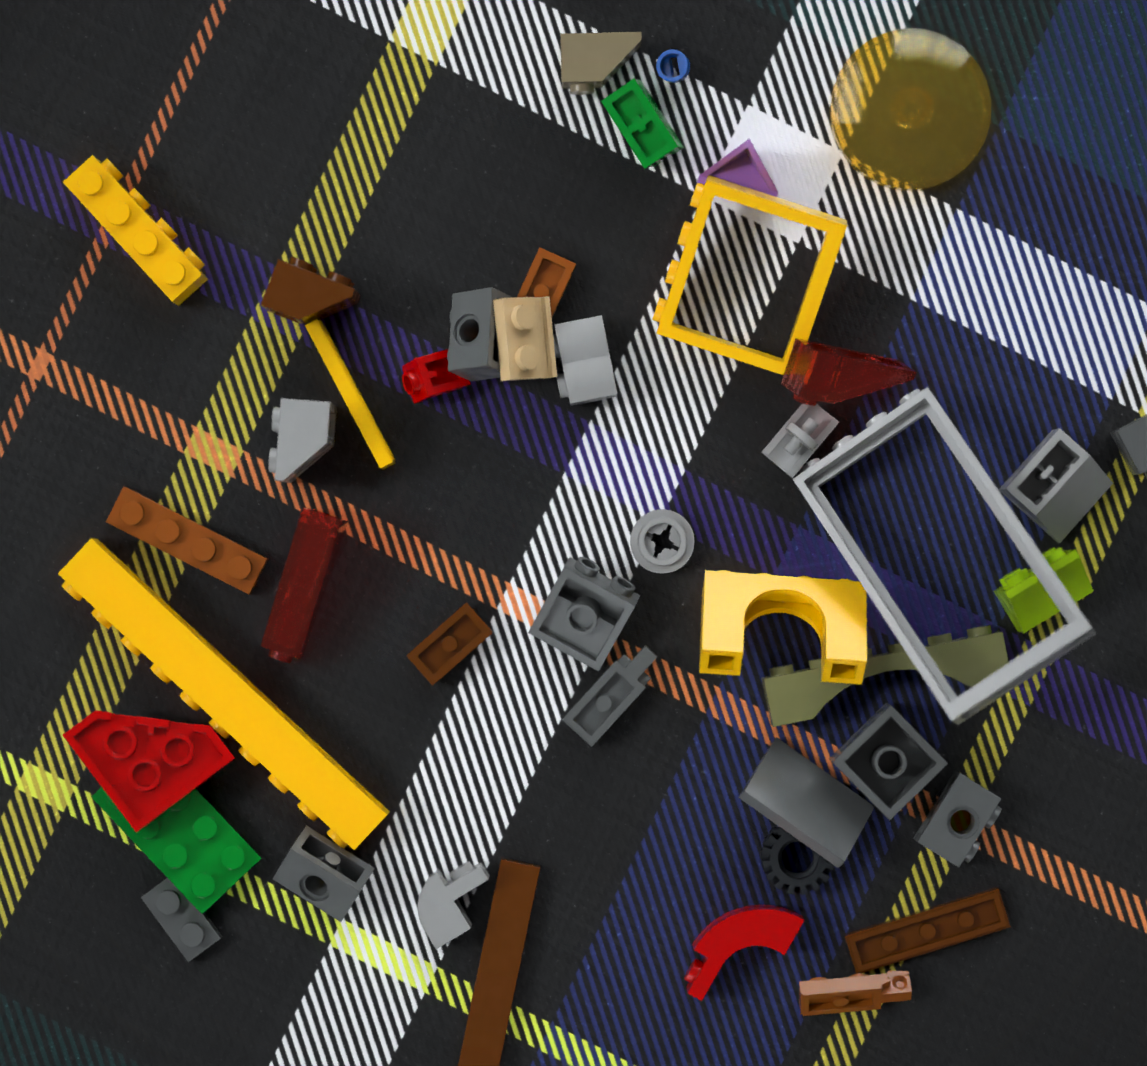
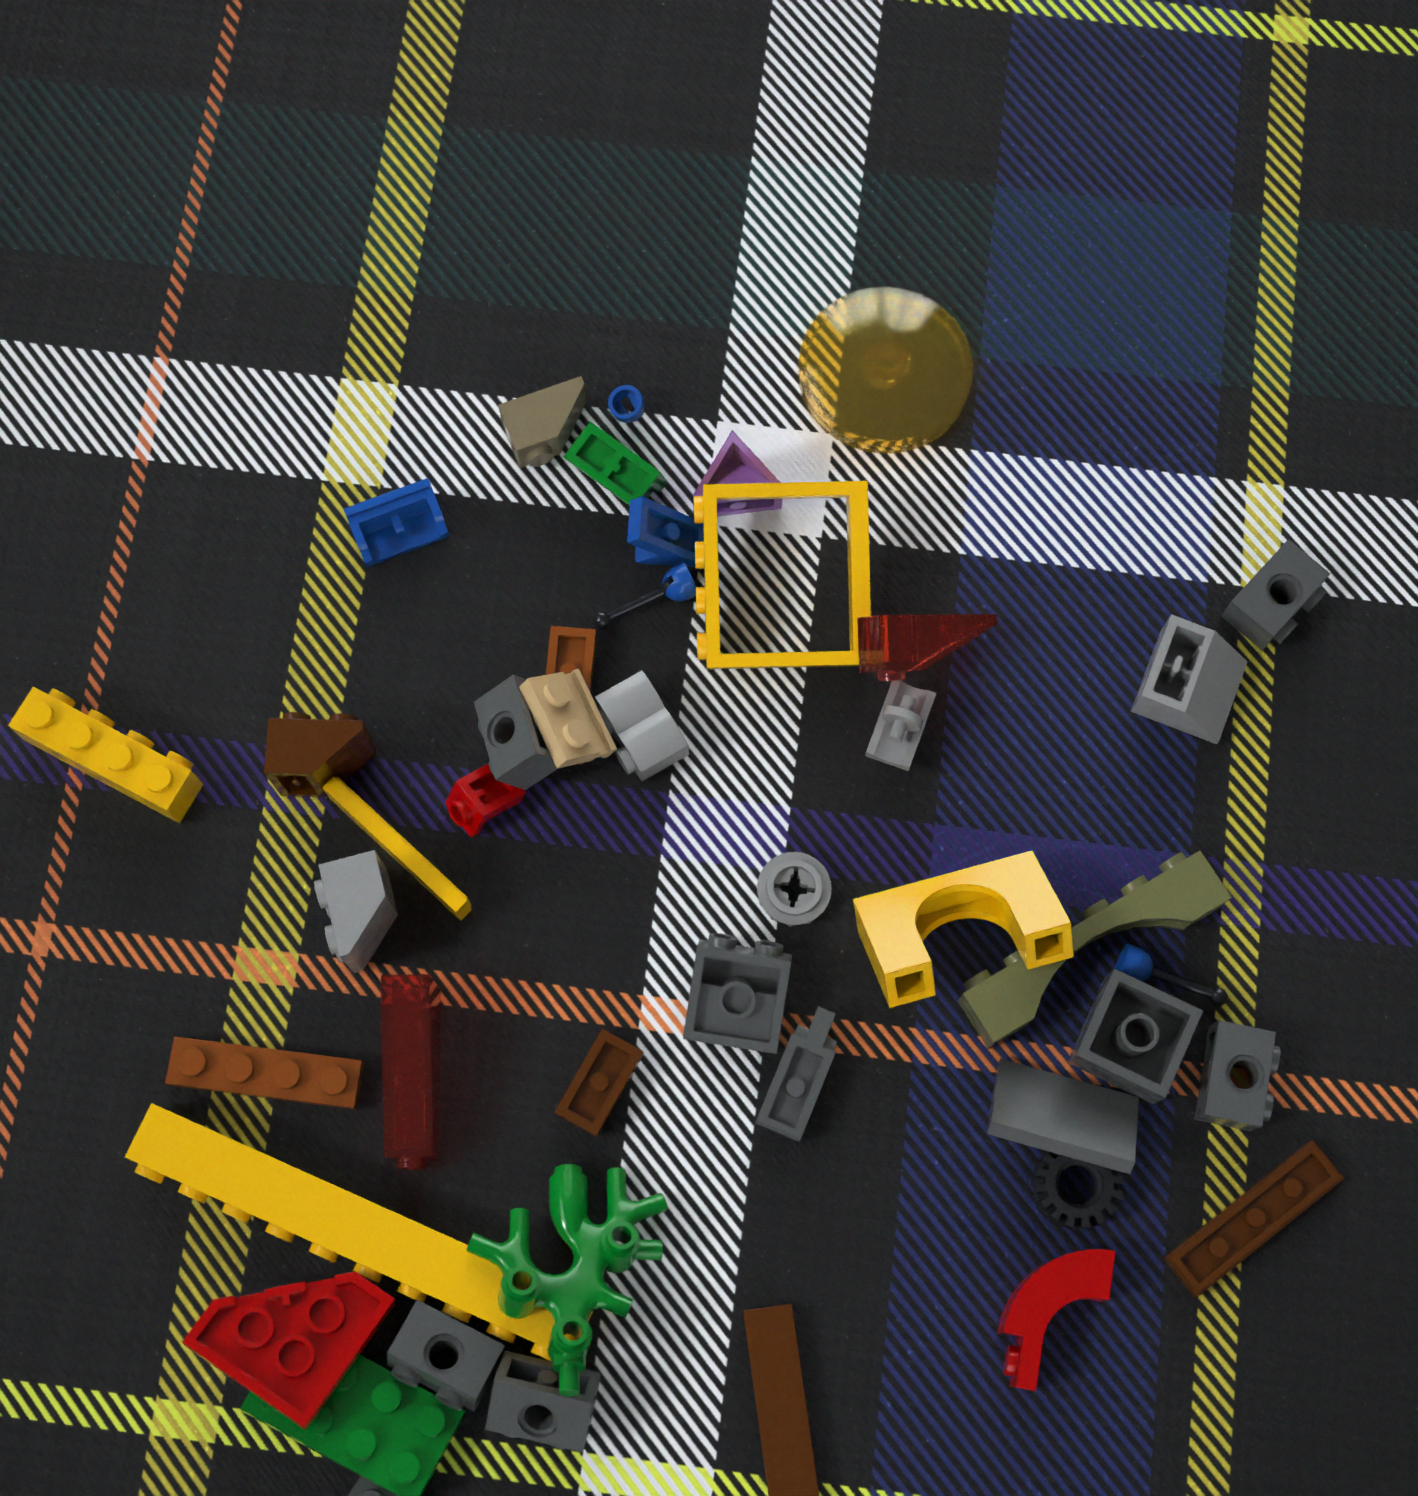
camera: 20 degrees left, 15 degrees down
(252, 790) = (432, 1331): none -> dark grey brick
(381, 801) = (582, 1287): none -> green plant
(439, 904) = (689, 1391): light grey brick -> none
(440, 107) = (396, 522): none -> blue hinge
(658, 247) = (676, 585): none -> hinge
(662, 198) = (662, 534): none -> blue slope
(852, 449) = (1240, 871): light grey door -> none
(853, 993) = (1201, 1320): dark orange hinge -> none
(915, 703) = (1139, 965): none -> hinge
(1027, 599) = (1225, 791): lime slope -> none

